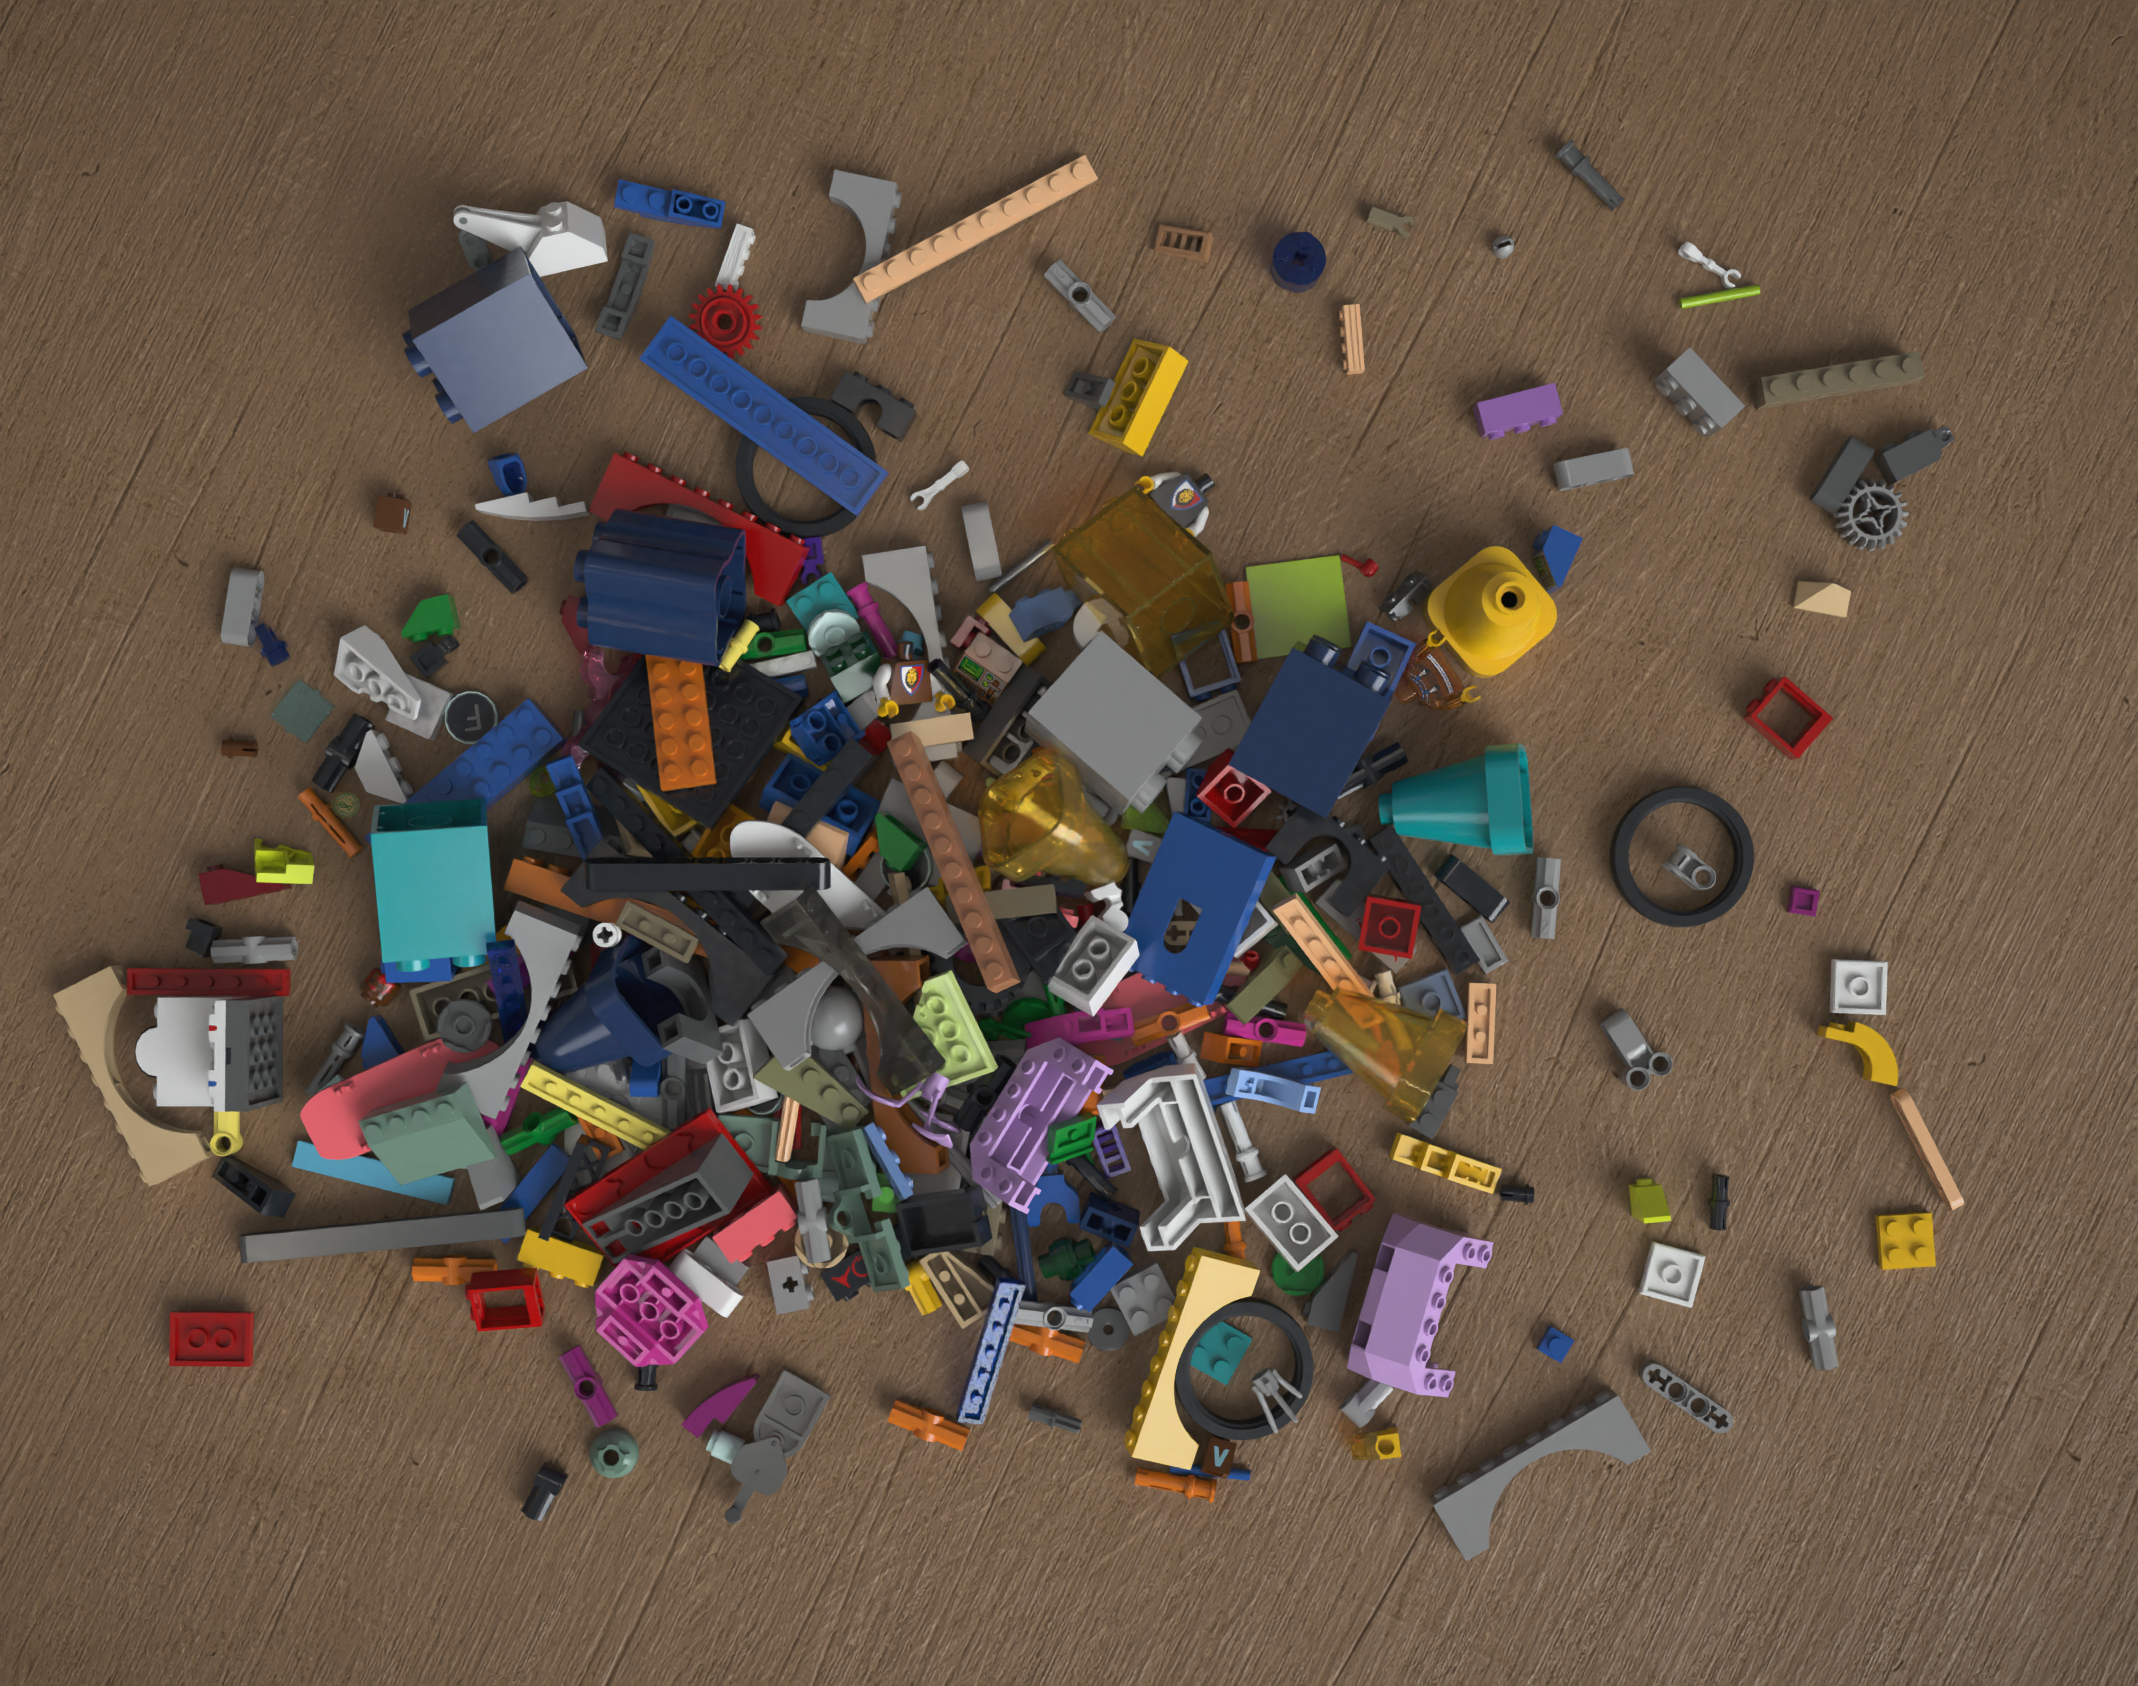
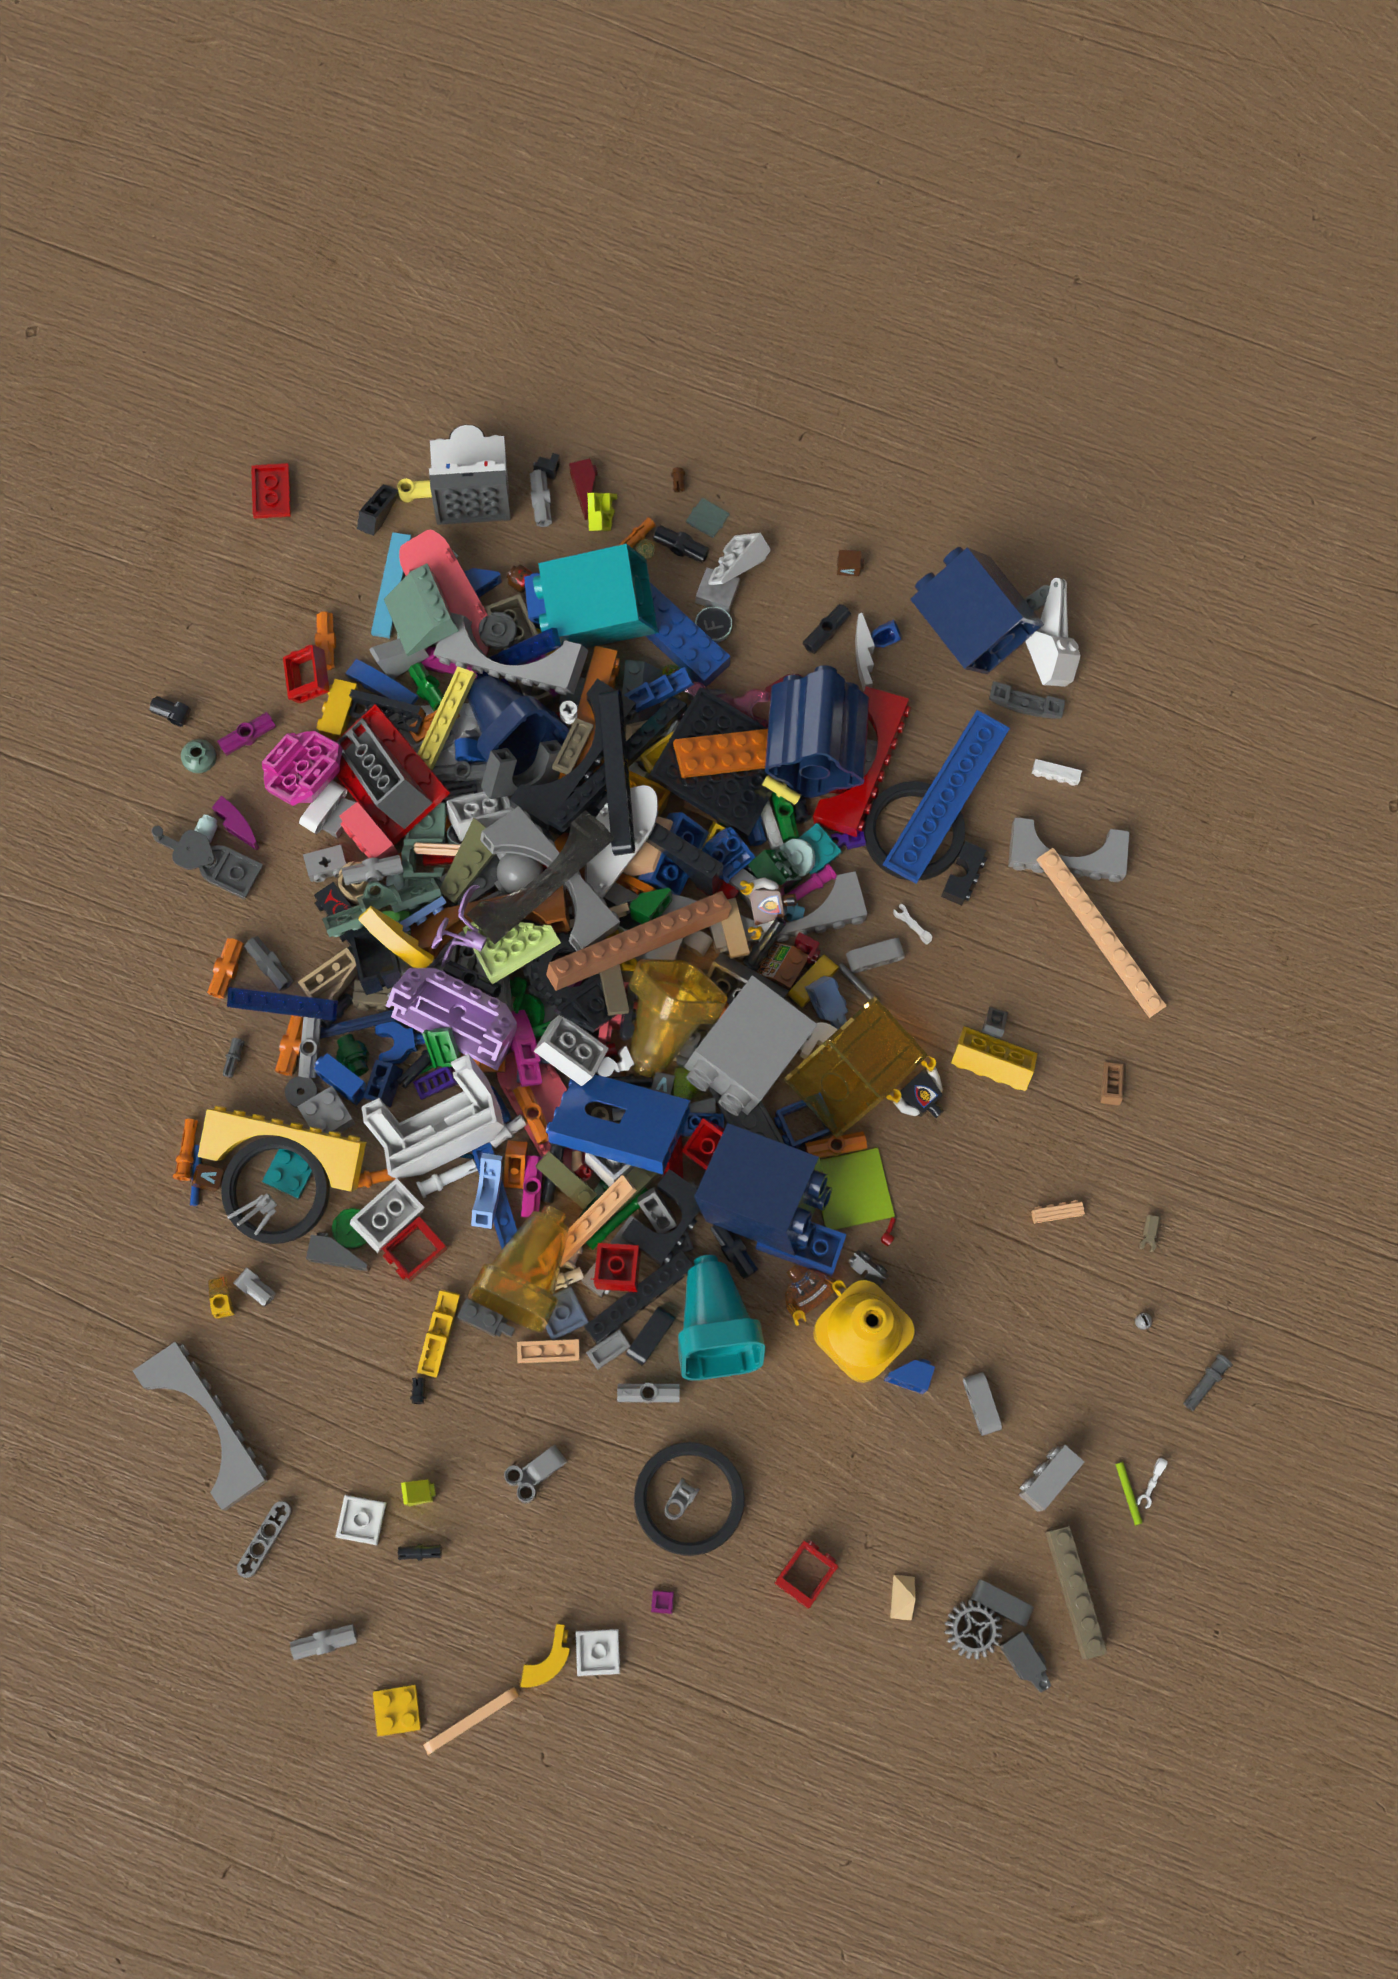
camera: 80 degrees right, 15 degrees down
(91, 1018) = (489, 401): tan arch -> none
(208, 981) = (516, 472): red plate -> none
(242, 606) = (775, 474): light grey beam -> none
(273, 648) = (749, 495): clear blue piece -> none
(340, 1048) = (474, 557): light grey pin -> none
(380, 770) = (672, 567): white slope -> none
(382, 1235) = (348, 592): dark grey beam -> none
(432, 617) = (780, 592): green slope -> none
(432, 658) = (751, 595): black plate -> none
(646, 1378) = (253, 772): black bush -> none
(669, 206) = (1088, 724): blue slope -> none
(742, 317) = (1014, 779): red gear -> none
(920, 1199) = (392, 936): none -> yellow slope
(922, 1288) = (329, 950): yellow piece -> none
(926, 1366) = (268, 963): none -> dark grey piece
(1090, 309) = (1069, 1001): light grey piece -> none
(1304, 248) = (1113, 1155): clear blue brick -> none
(1407, 1302) = (332, 1302): lavender wedge -> none
(1518, 411) = (1019, 1341): medium lavender brick -> none
(1555, 1344) = (302, 1431): blue plate -> none

